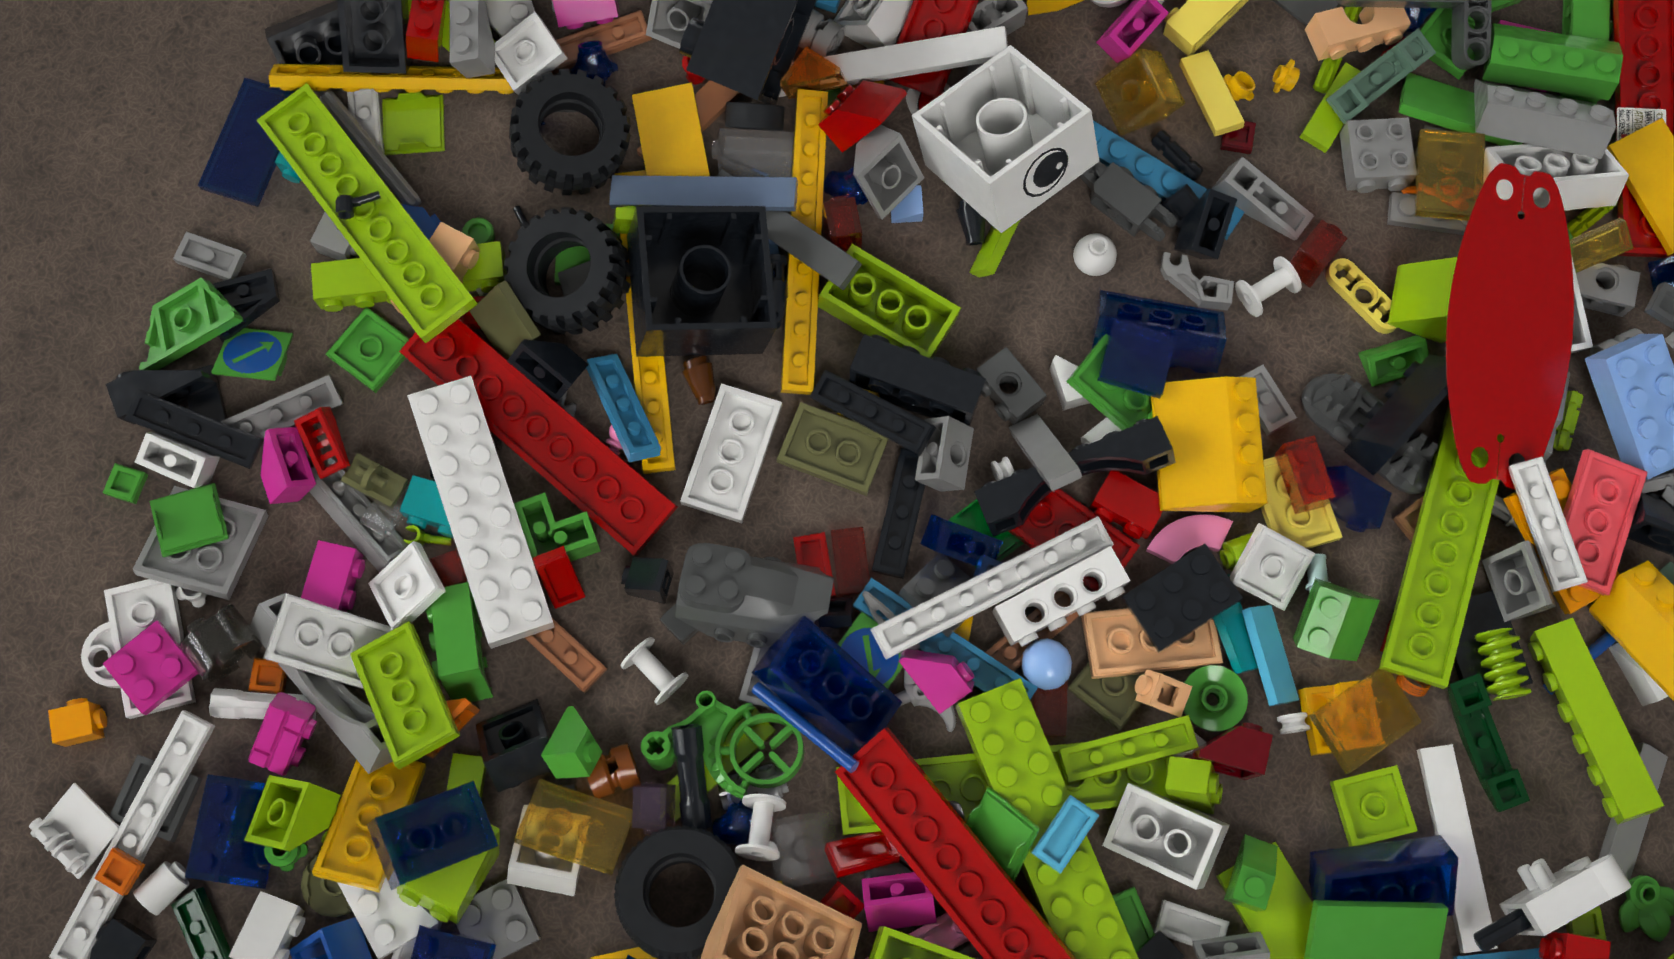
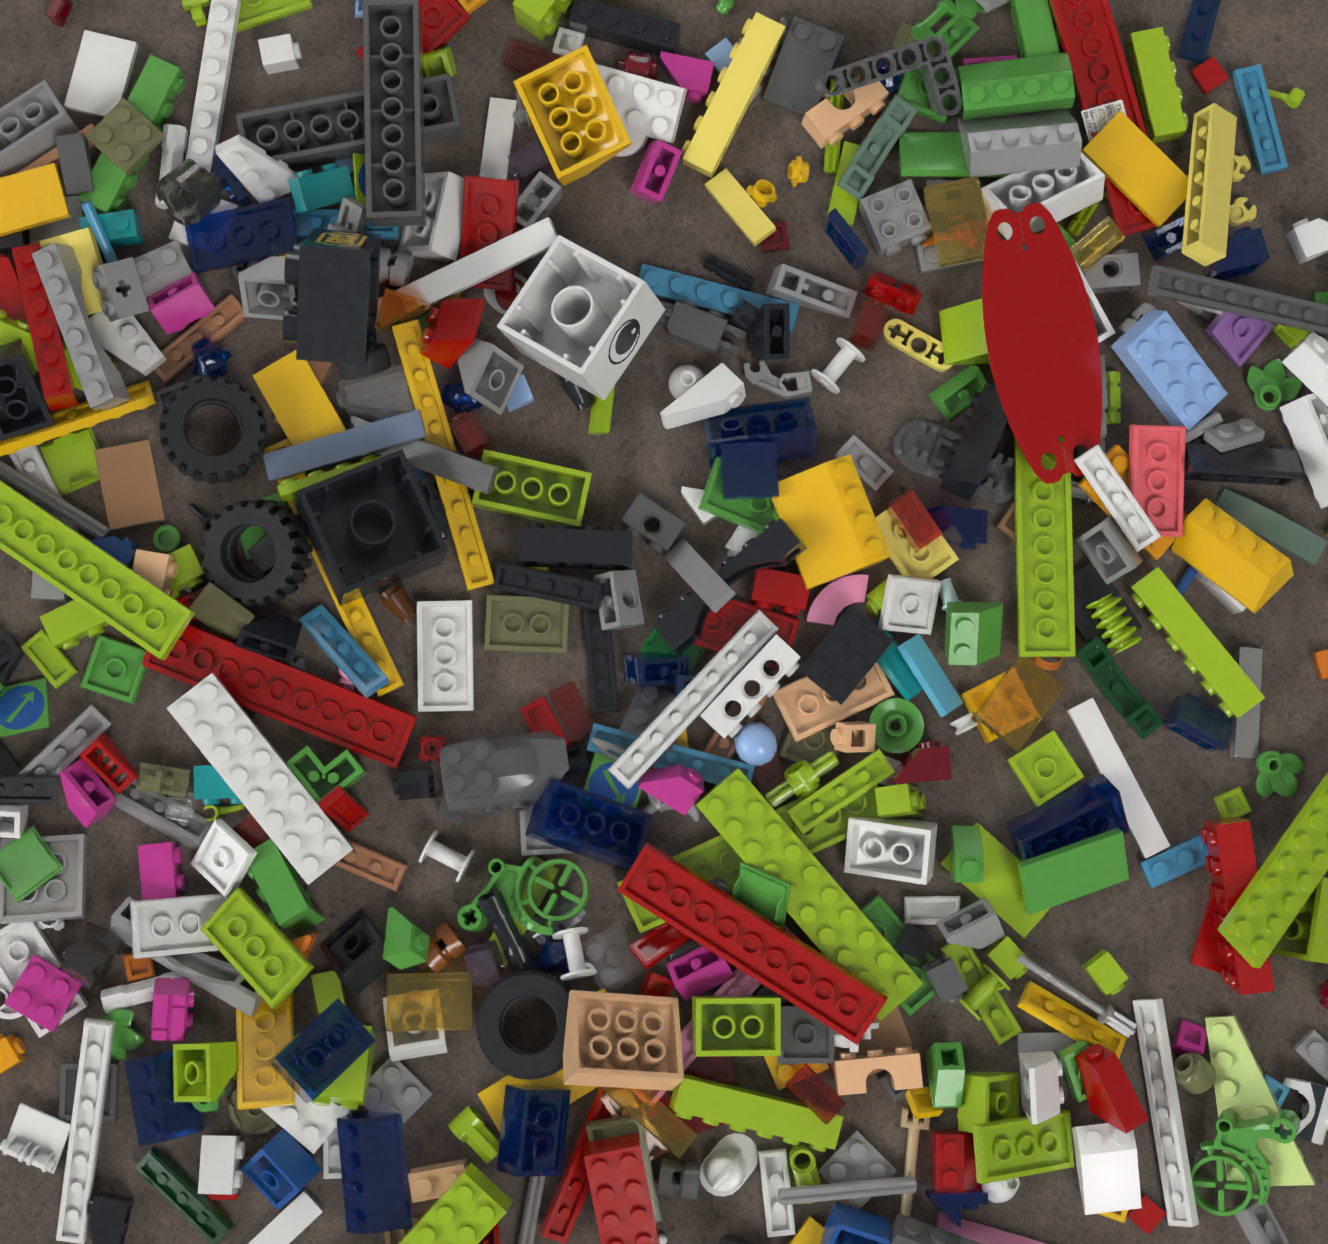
camera: 20 degrees left, 10 degrees up
(119, 871) = (85, 1158): orange tile -> none
(162, 887) = (122, 1157): white brick -> none
(219, 749) = (124, 1036): none -> bright green plate
(304, 316) = (49, 659): none -> lime tile
(345, 203) = (52, 563): black hand -> none
(460, 166) = (129, 485): none -> medium nougat tile
(527, 53) = (152, 373): white plate -> none
(677, 540) = (426, 743): none -> red plate
(805, 727) = (582, 863): blue bar -> none
(1003, 469) = (670, 596): white bush -> none
(1065, 834) = (811, 880): medium azure tile -> none
(1088, 720) = (801, 779): none -> lime axle
(1112, 273) = (707, 398): none -> white slope
(1140, 91) = (680, 226): clear yellow slope -> none
(1318, 157) = (845, 239): none -> clear blue tile
(1361, 240) = (903, 299): none -> red hinge
(1554, 898) = (1201, 797): white piece -> none
(1569, 815) = (1197, 723): none -> slope

